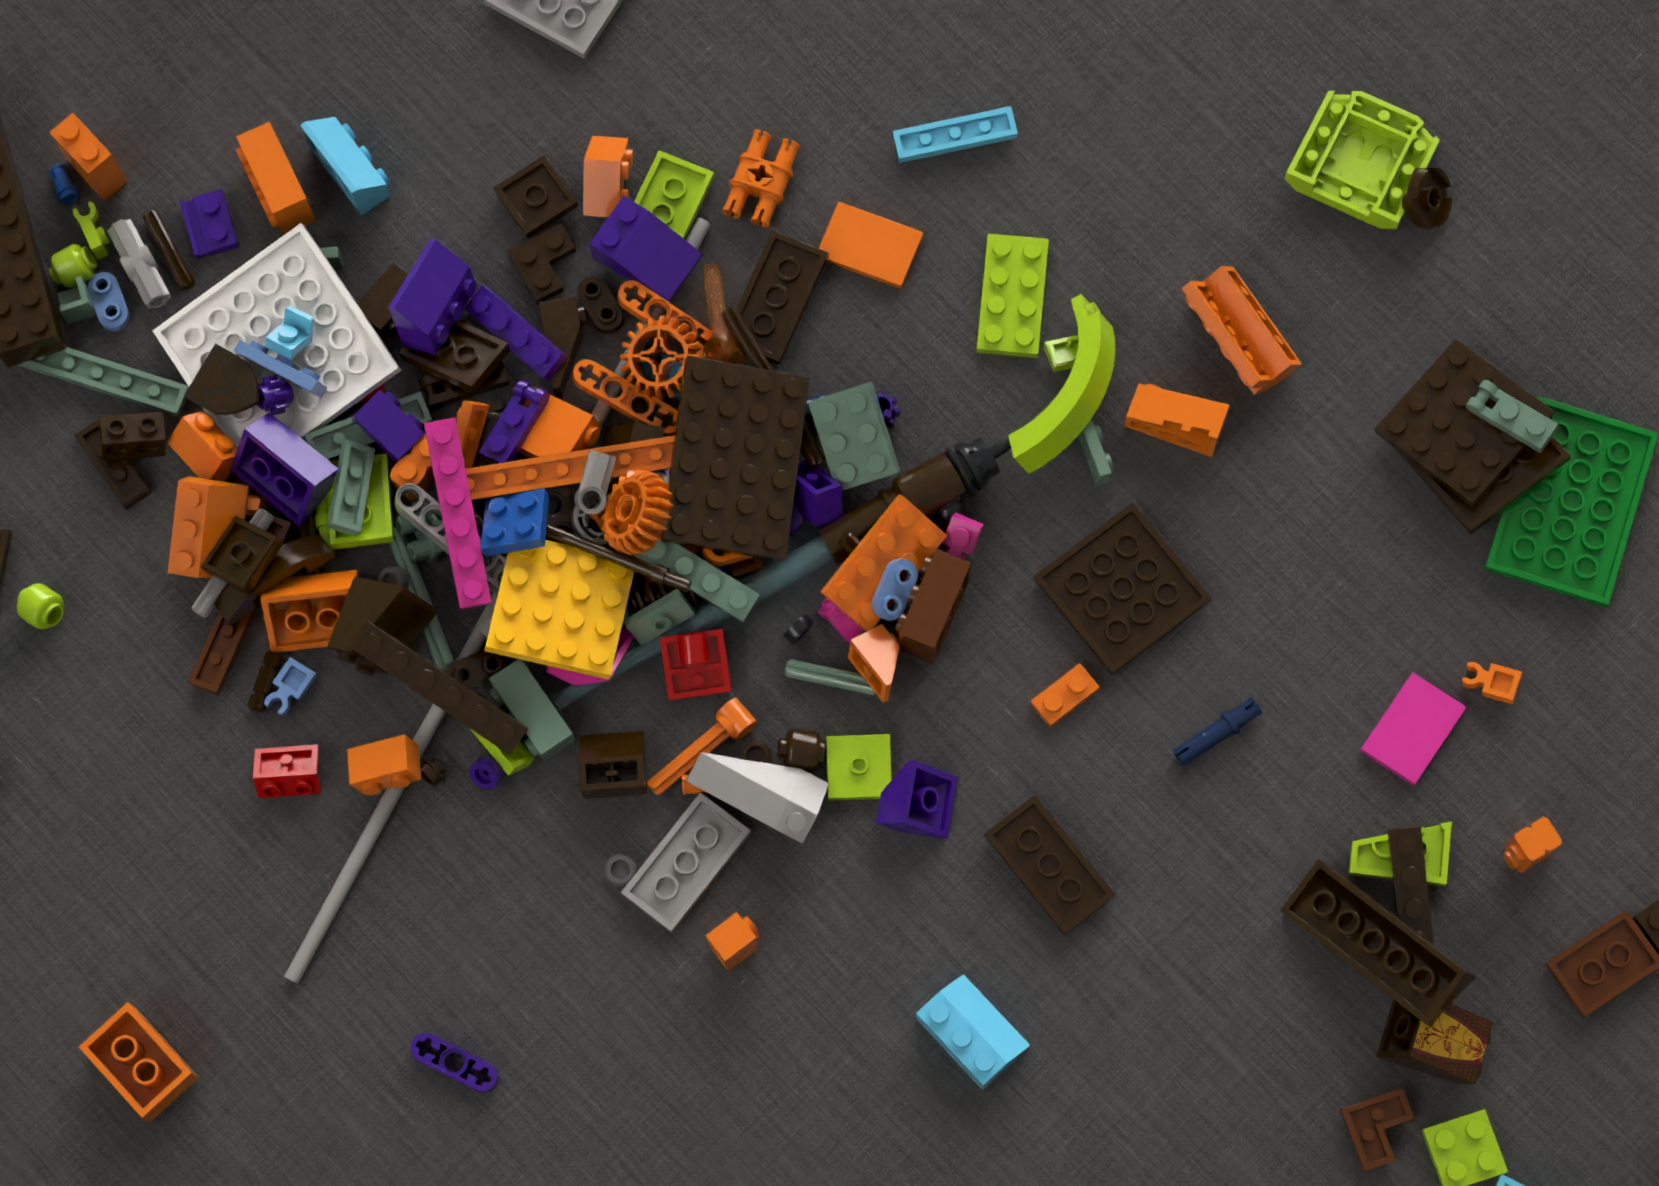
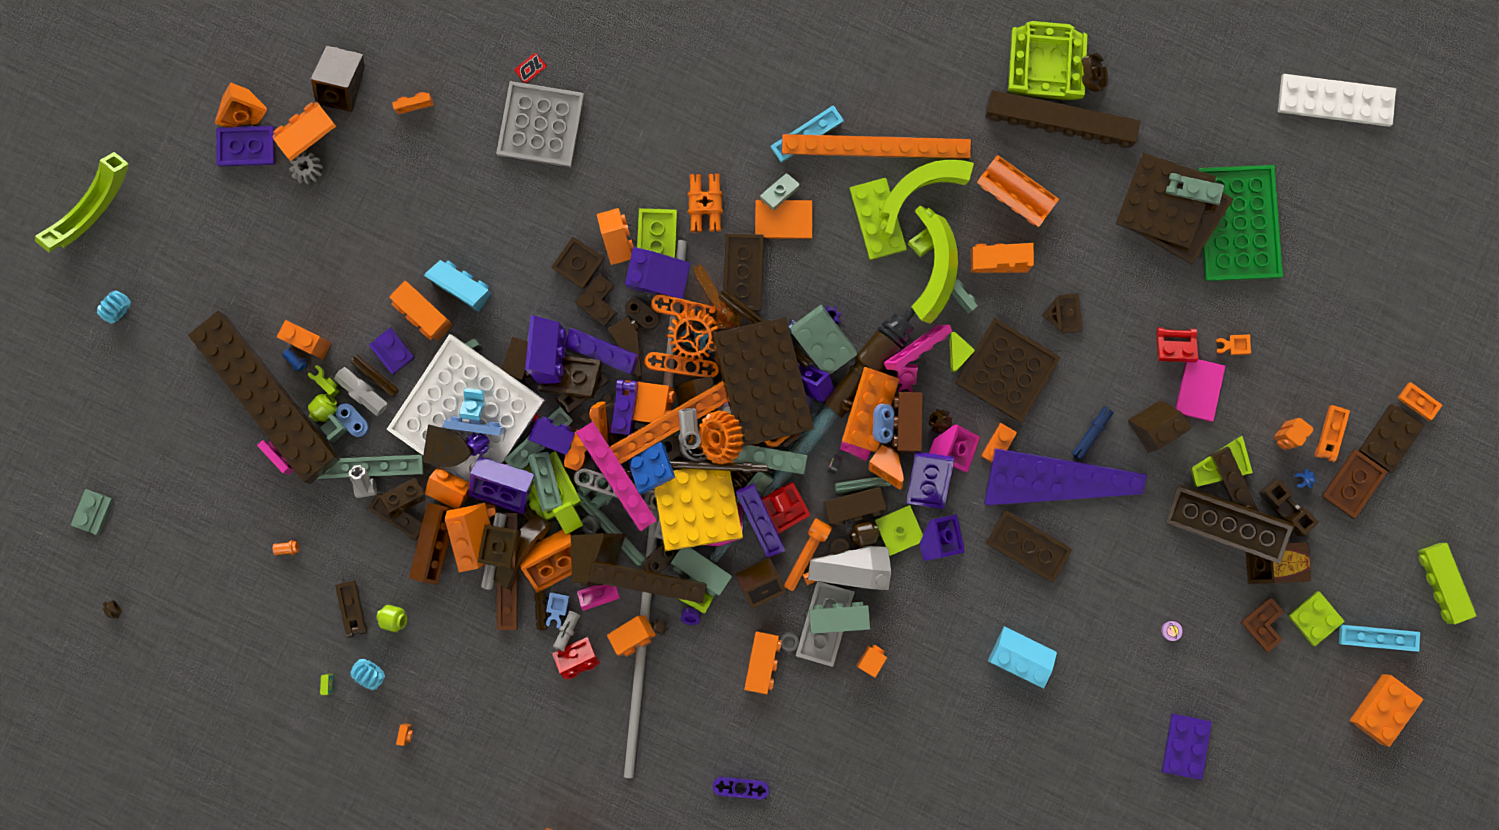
camera: 25 degrees left, 10 degrees up
(82, 393) = (362, 484): none -> light grey piece
(142, 521) = (431, 545): none -> reddish brown brick
(290, 723) = (566, 631): none -> light grey pin
(360, 688) = (597, 596): none -> dark pink plate
(362, 550) = (568, 517): none -> lime slope
(565, 883) = (762, 662): none -> orange brick
(649, 666) = (760, 520): none -> dark purple plate
(709, 857) = (839, 618): none -> sand green brick
(803, 703) = (855, 506): none -> dark brown brick
(879, 201) = (779, 191): none -> plate
(933, 703) = (929, 480): none -> tile
(987, 624) = (940, 421): none -> dark brown gear
(994, 673) = (958, 444): none -> dark pink slope
(1005, 498) = (920, 345): none -> dark pink plate
(1051, 188) = (876, 146): none -> orange plate
(1058, 534) = (959, 351): none -> lime slope
(1094, 255) = (939, 171): none -> lime arch
(1100, 766) = (1035, 478): none -> dark purple wing
(1225, 1082) = (1171, 630): none -> lavender tile
(1246, 538) = (1065, 313): none -> dark brown slope
(1324, 758) = (1159, 425): none -> dark brown slope
(1353, 249) = (1062, 118): none -> dark brown brick
(1399, 655) = (1177, 350): none -> plate
(1474, 942) = (1279, 499): none -> dark brown arch
(1534, 927) = (1309, 478): none -> blue plate
(1599, 872) = (1332, 433): none -> orange plate

